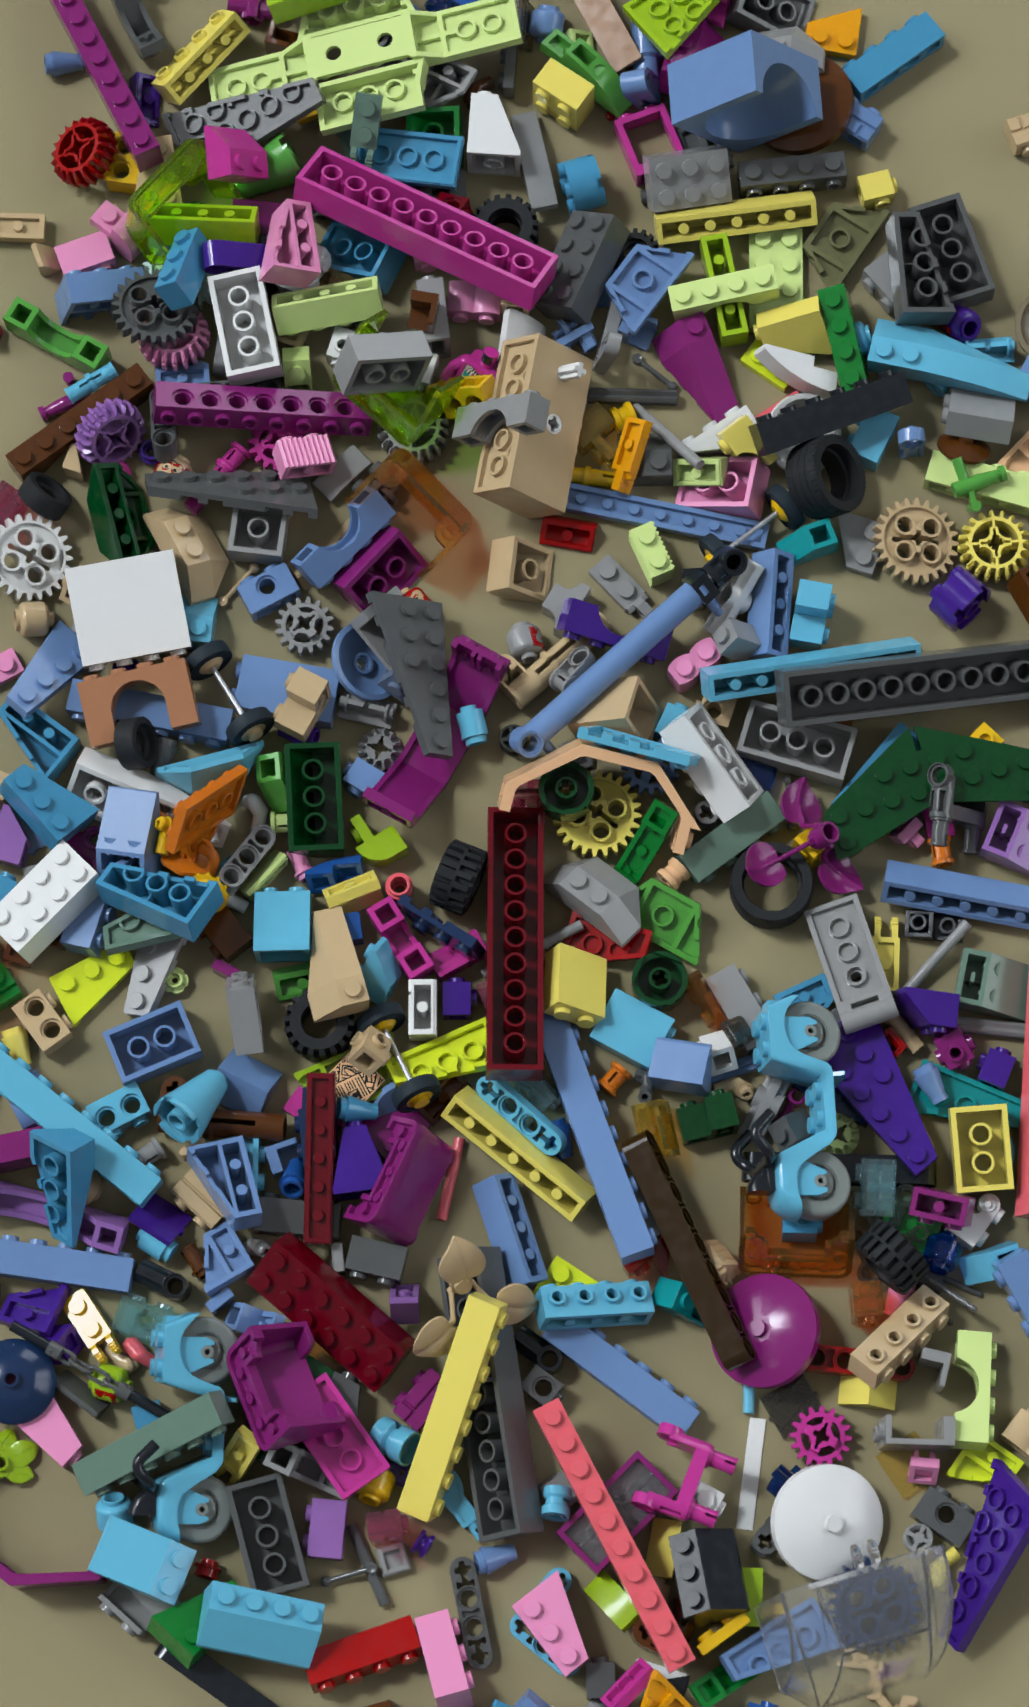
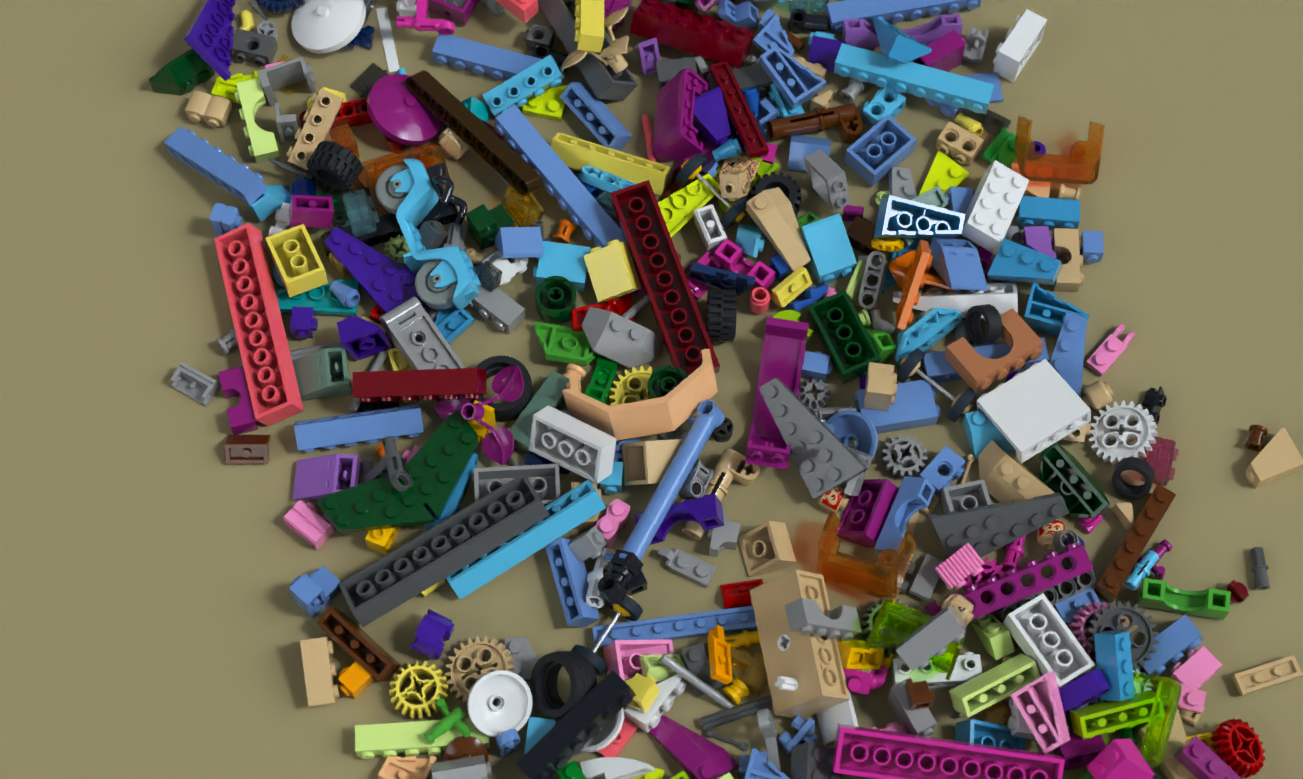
camera: 155 degrees right, 10 degrees down
(45, 259) = (1228, 661): tan slope -> none
(110, 432) = (1109, 537): medium lavender gear -> none
(162, 825) = (935, 269): yellow arm -> none
(191, 1106) = (835, 113): medium azure cone -> none
(331, 399) = (961, 605): none -> tan head
(458, 999) = (689, 246): dark purple brick -> none
(472, 725) = (754, 422): medium azure brick -> none
(525, 642) = (741, 498): light grey head -> none
(633, 744) = (638, 421): medium azure wing -> none
(651, 554) = (674, 592): yellowish green brick -> none
(698, 994) = (522, 297): clear orange wing -> none
(808, 1430) = (351, 67): dark pink gear -> none
(810, 542) = (560, 639): teal slope -> none
(812, 607) = (539, 587): medium azure brick -> none
(877, 899) = (413, 384): none -> dark red brick
(908, 478) = (513, 702): none -> white dish
(955, 1038) = (329, 321): magenta brick -> none

